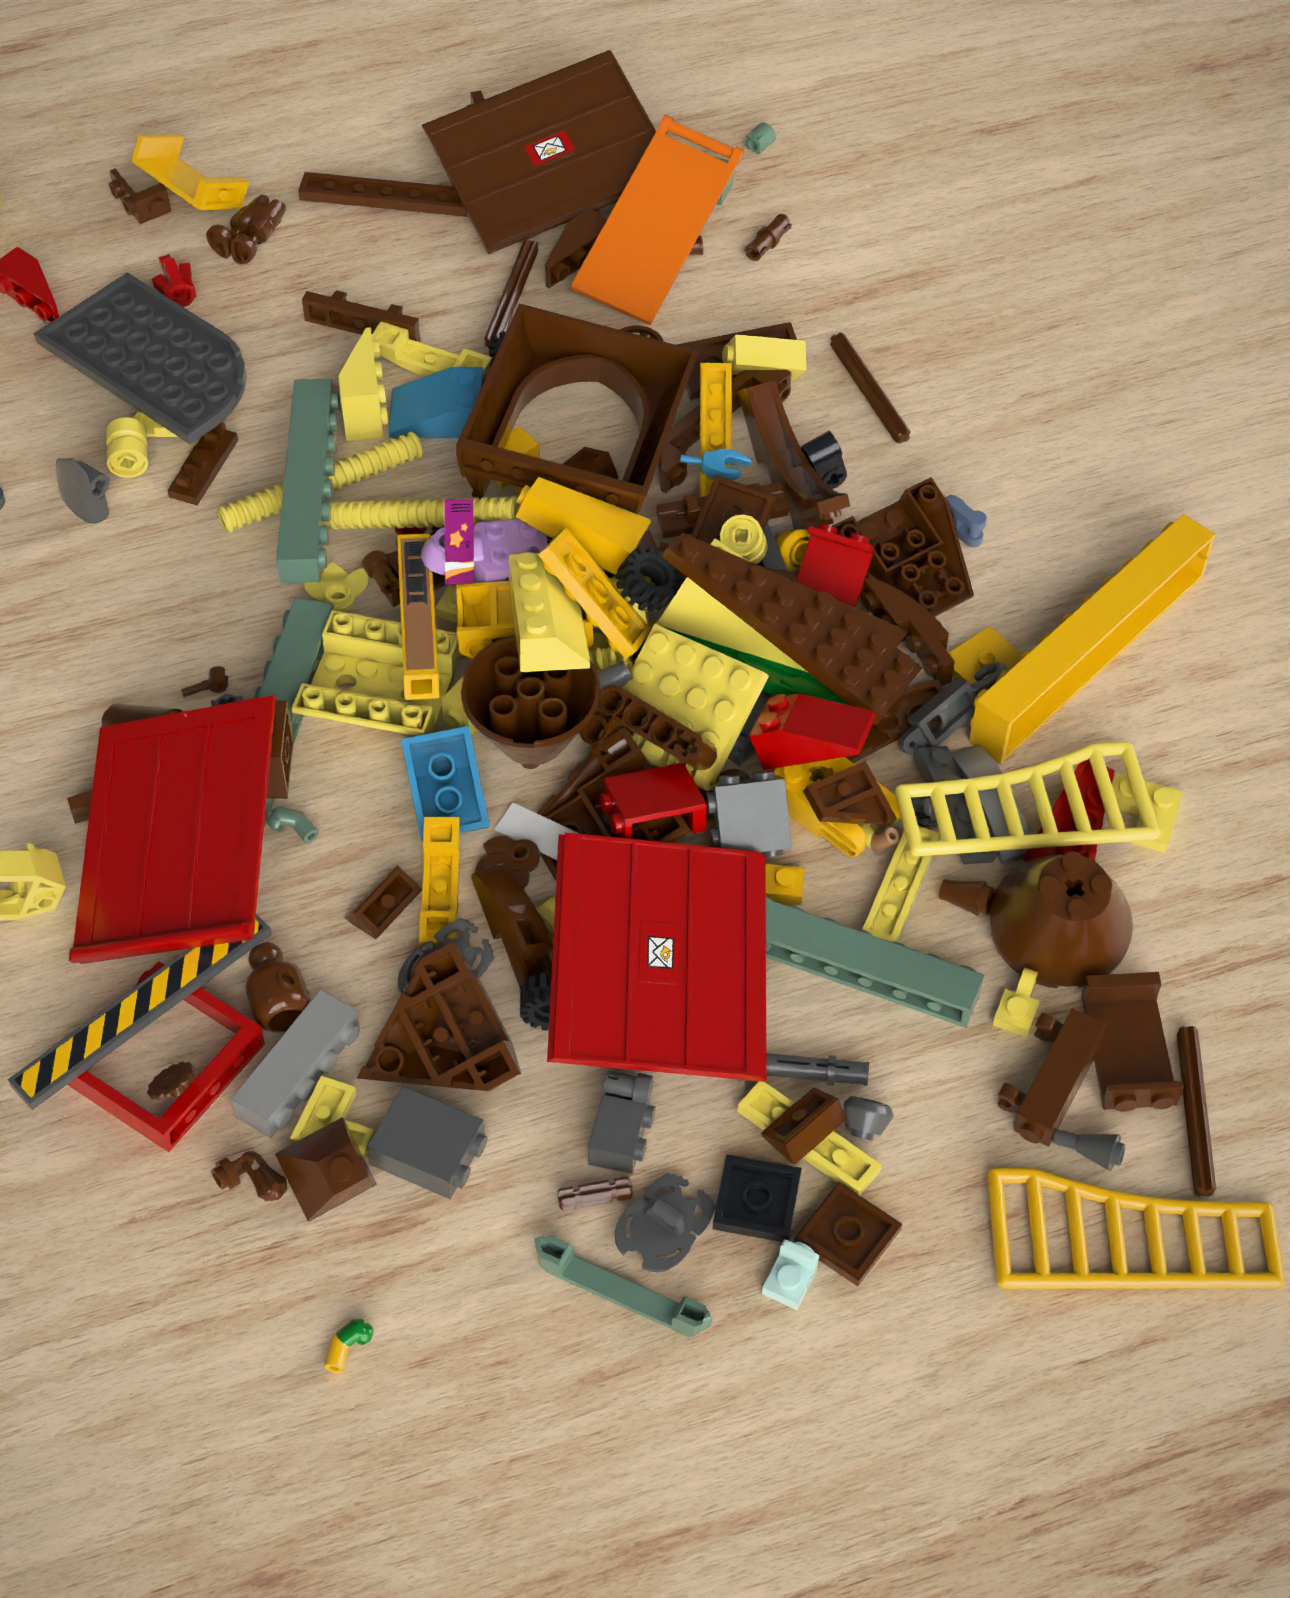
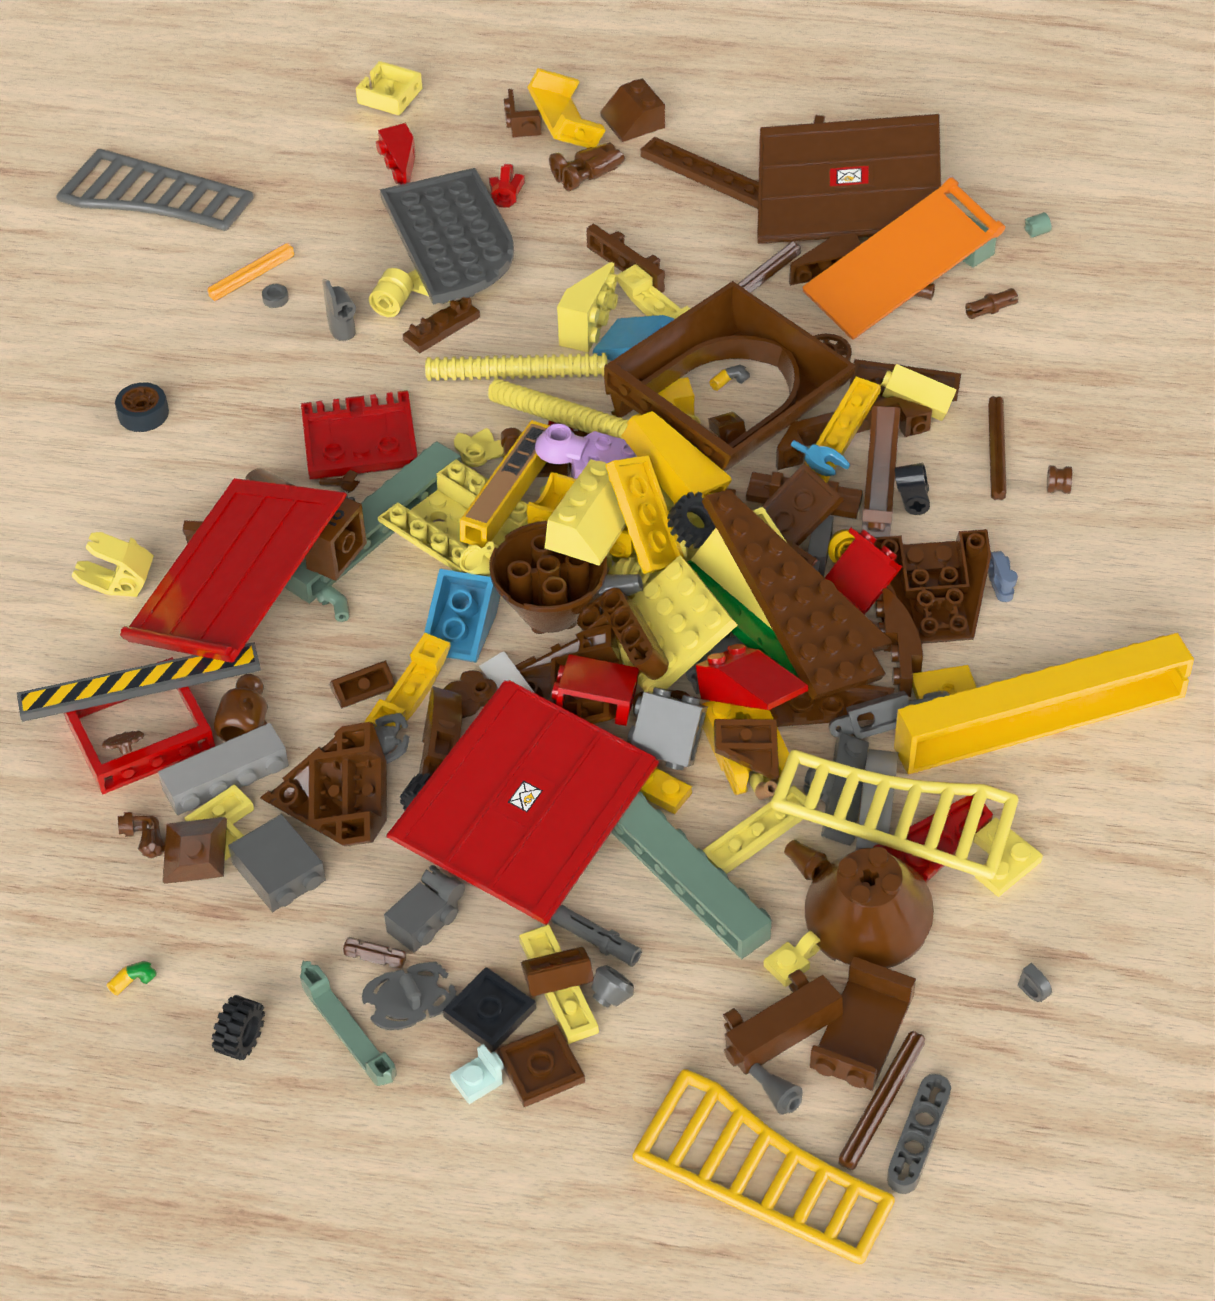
camera: 30 degrees right, 5 degrees down
(196, 624) = (358, 436): none -> red hinge
(262, 150) = (634, 111): none -> reddish brown slope
(307, 481) = (495, 360): sand green brick -> none
(443, 713) = (476, 559): none -> light yellow piece
(459, 541) = (563, 437): magenta sticker -> none
(513, 1345) = (238, 1027): none -> black tyre
(551, 407) = (727, 375): none -> arm
(744, 537) = (794, 520): light yellow wheel -> none
(953, 398) = (1059, 479): none -> reddish brown wheel
(1251, 1127) = (921, 1133): none -> dark grey beam
(1261, 926) = (1034, 984): none -> dark grey tile

